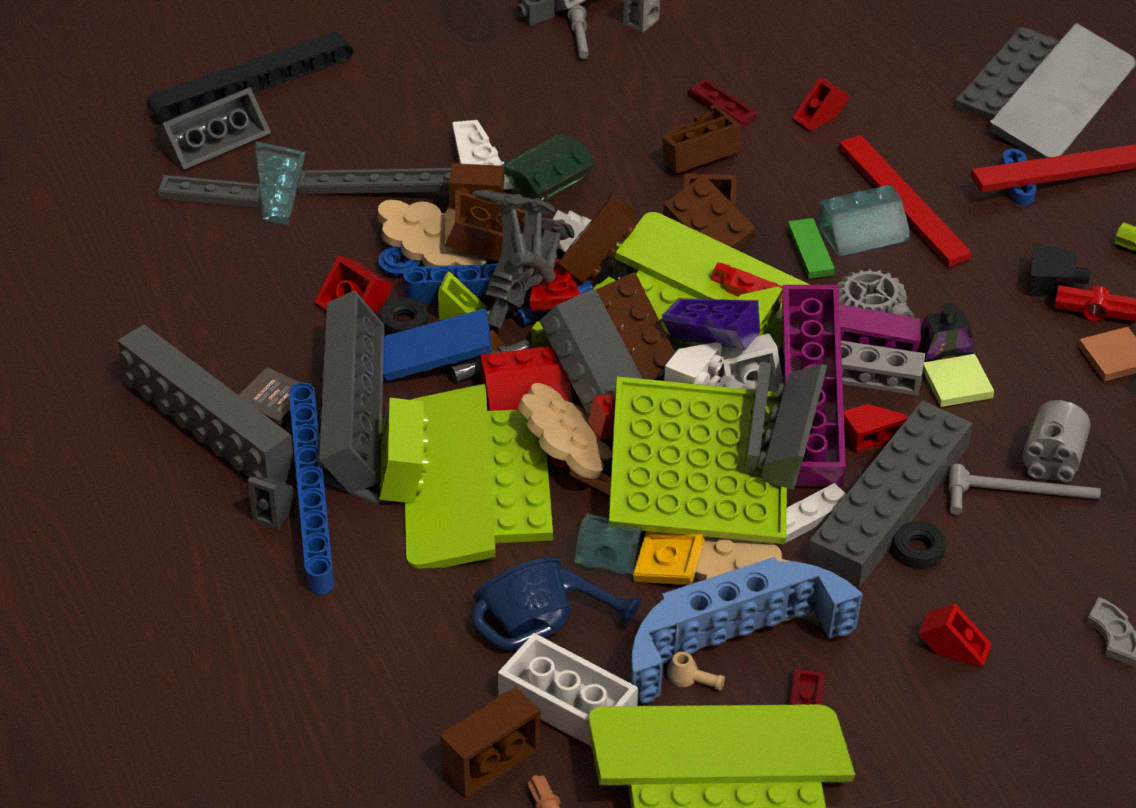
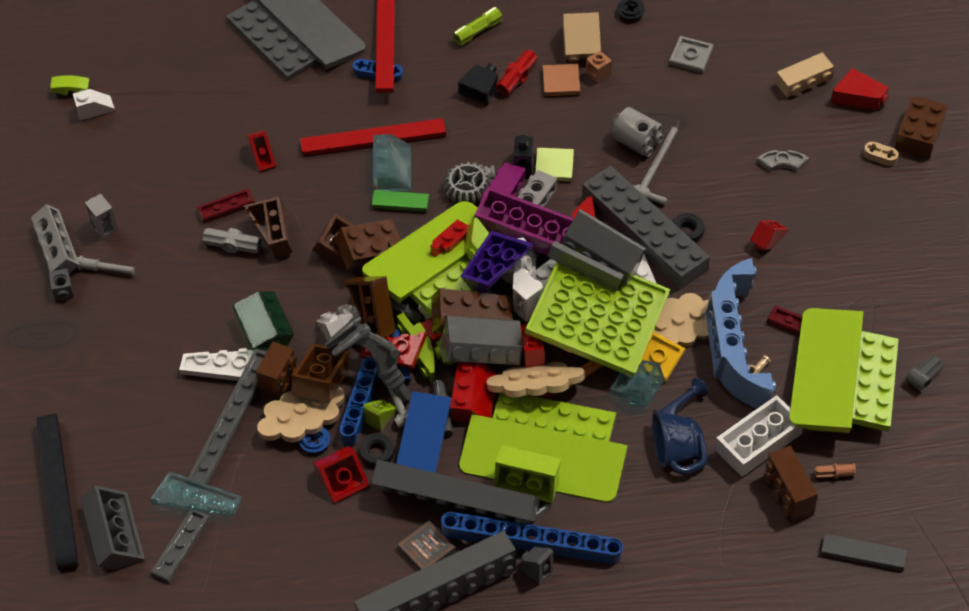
camera: 70 degrees left, 10 degrees up
(665, 112) = (232, 240): none -> light grey piece

